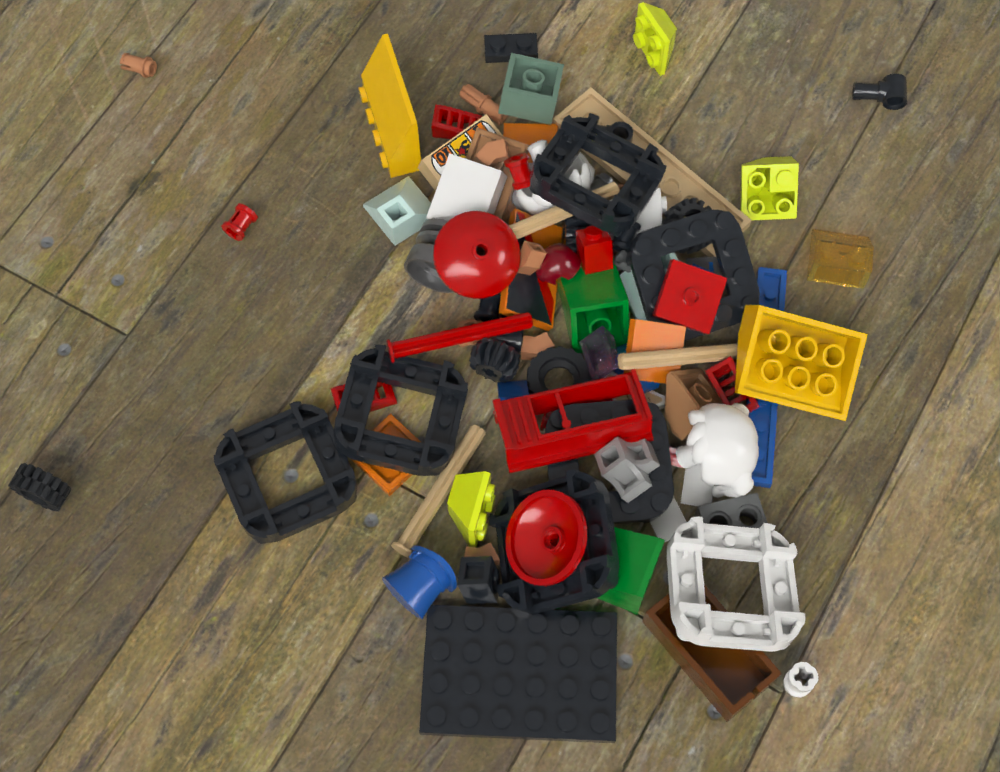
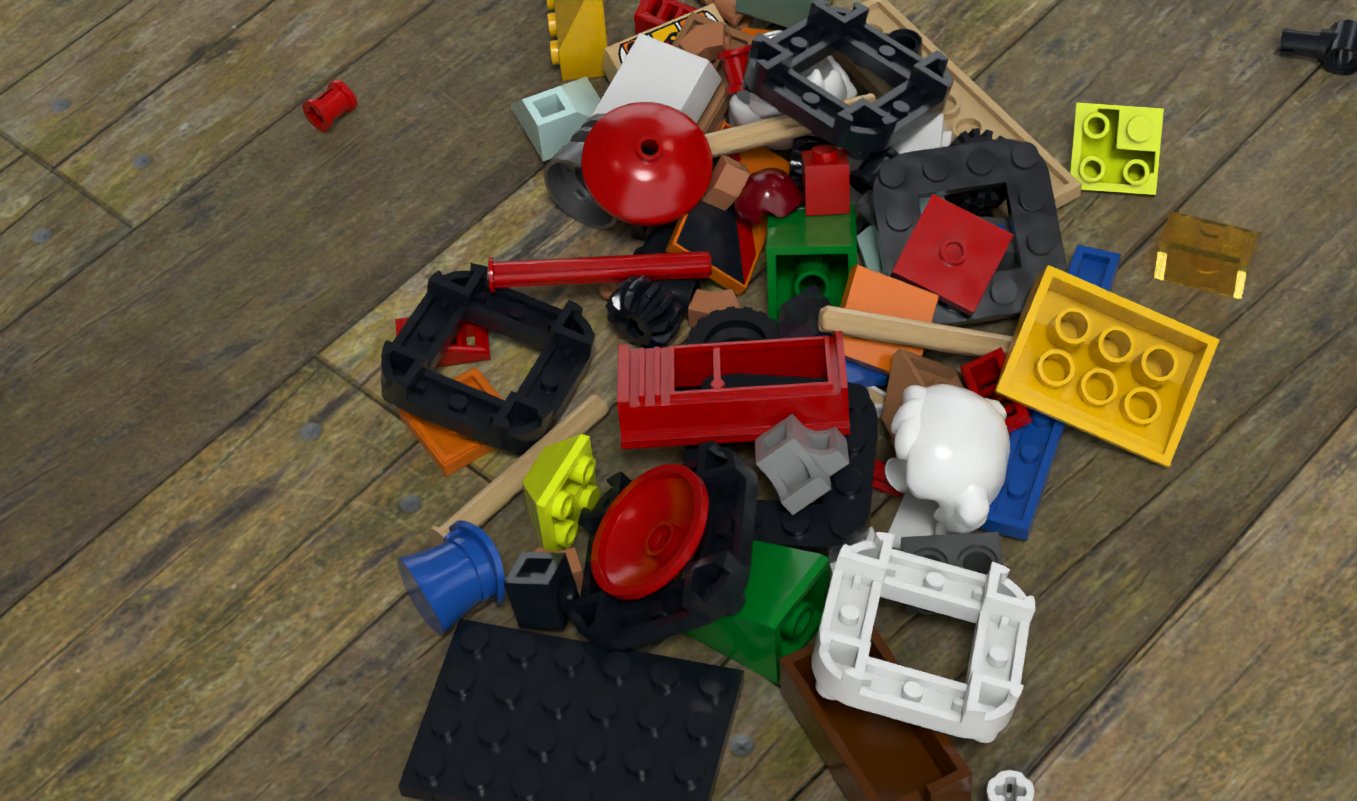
camera: 15 degrees right, 15 degrees down
(266, 436) = (312, 473): black plate -> none

